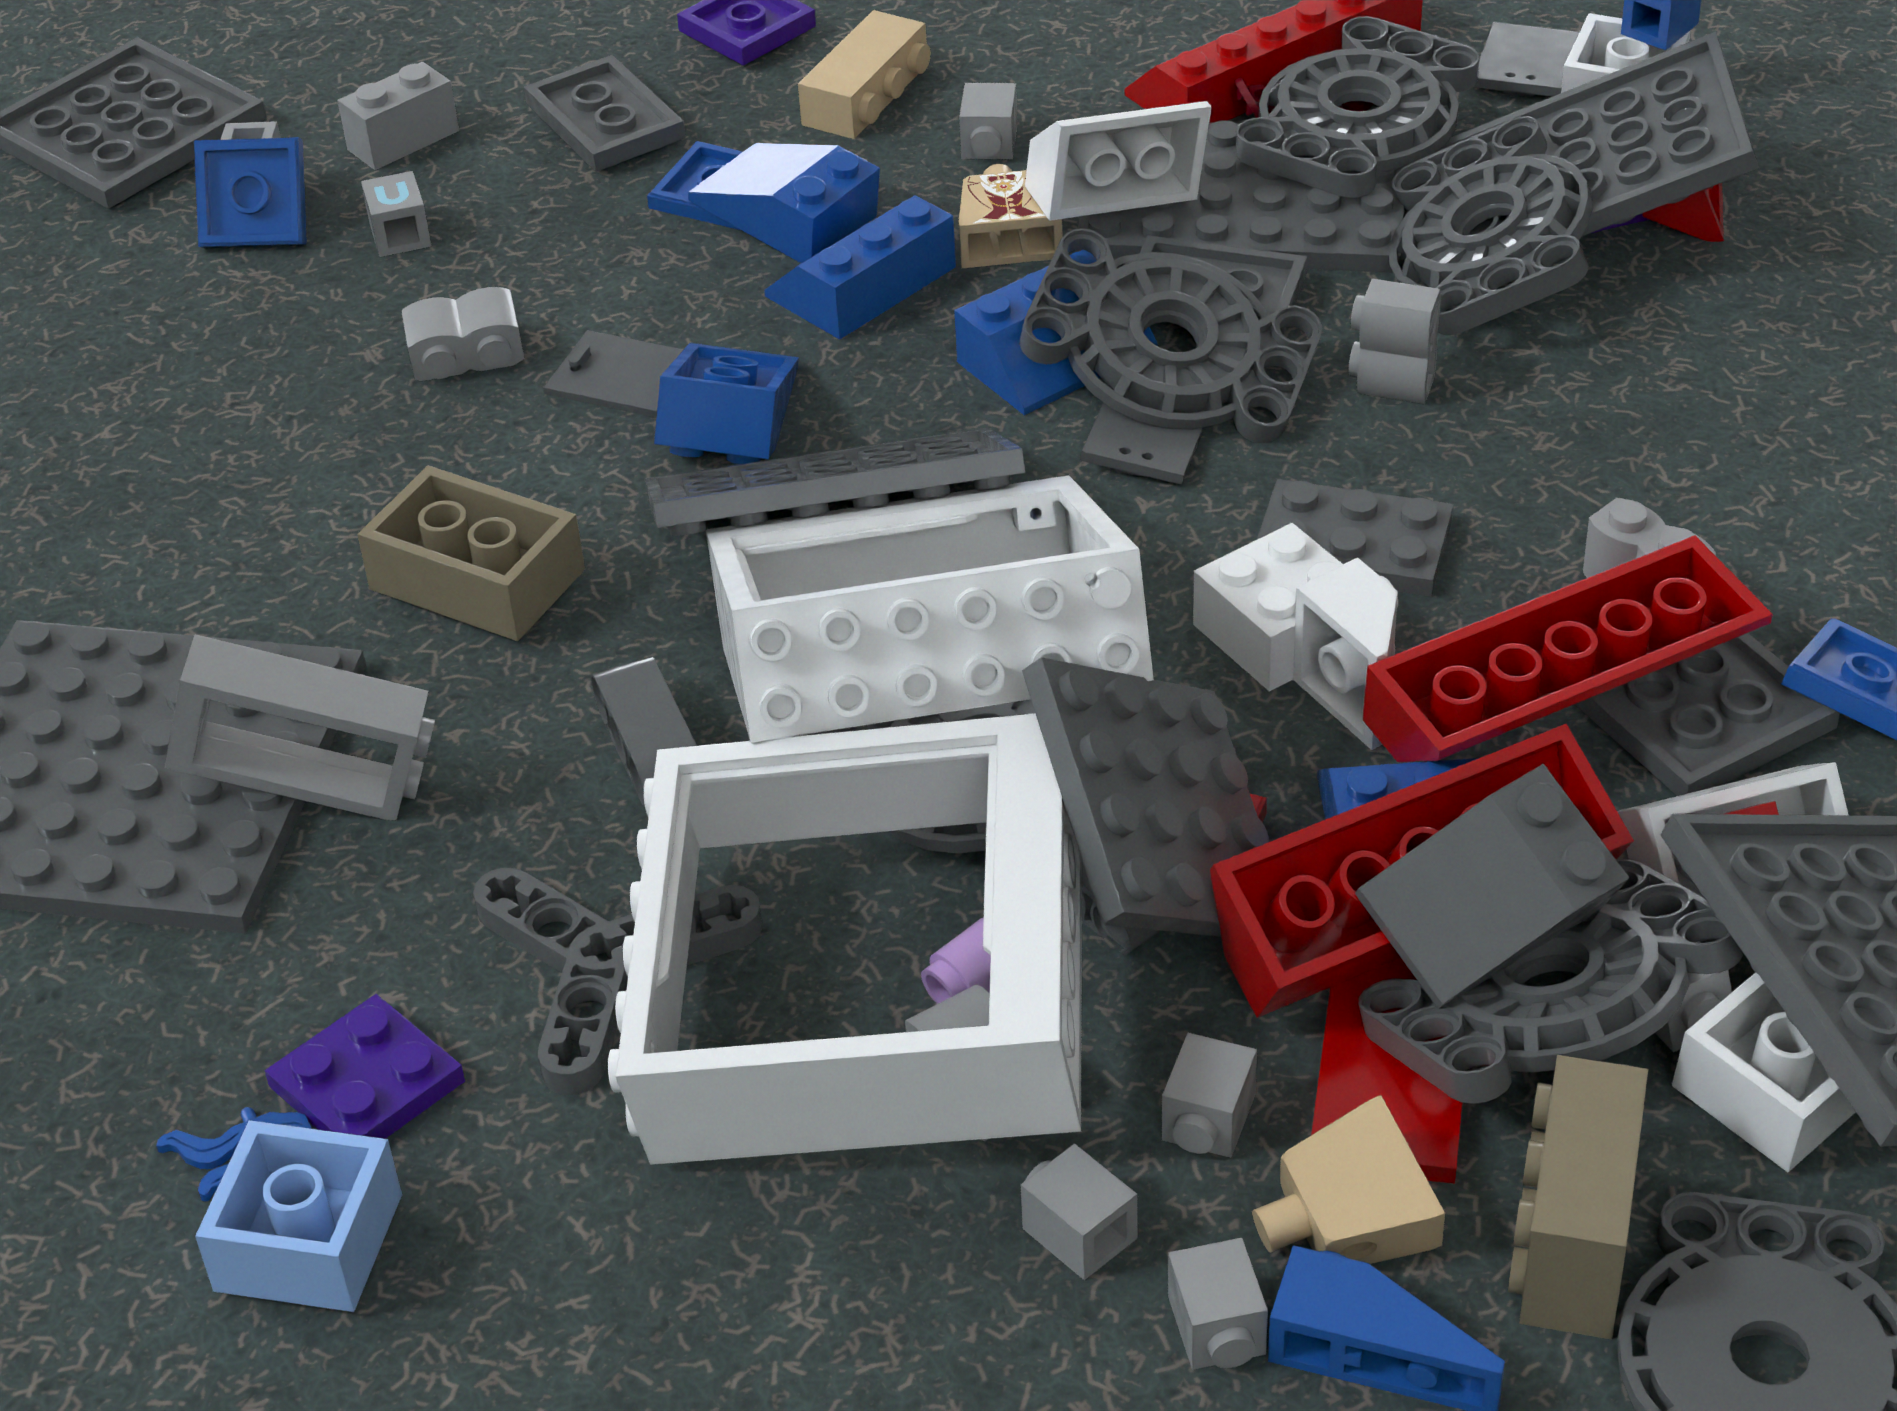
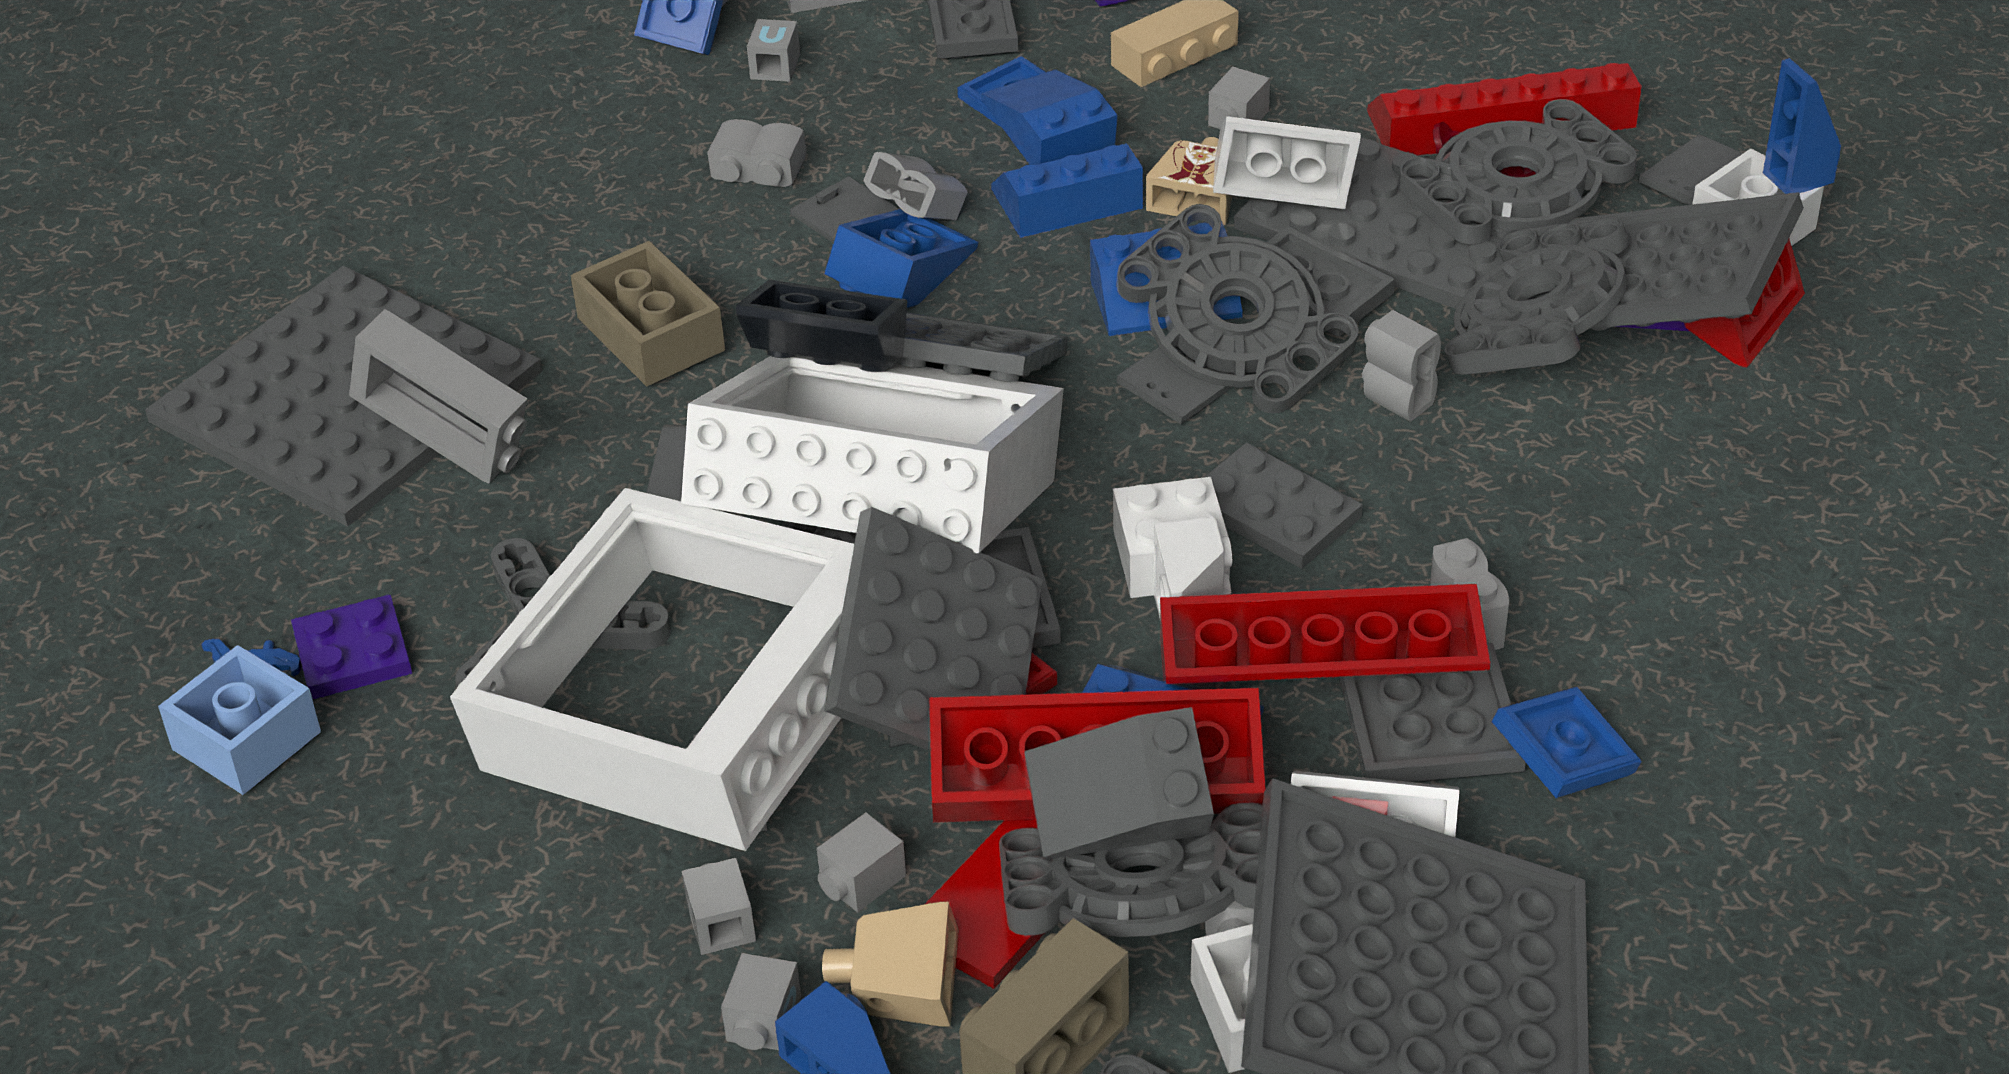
camera: 25 degrees right, 0 degrees up
(686, 312) = (915, 186): none -> light grey brick
(776, 482) = (824, 324): none -> black slope

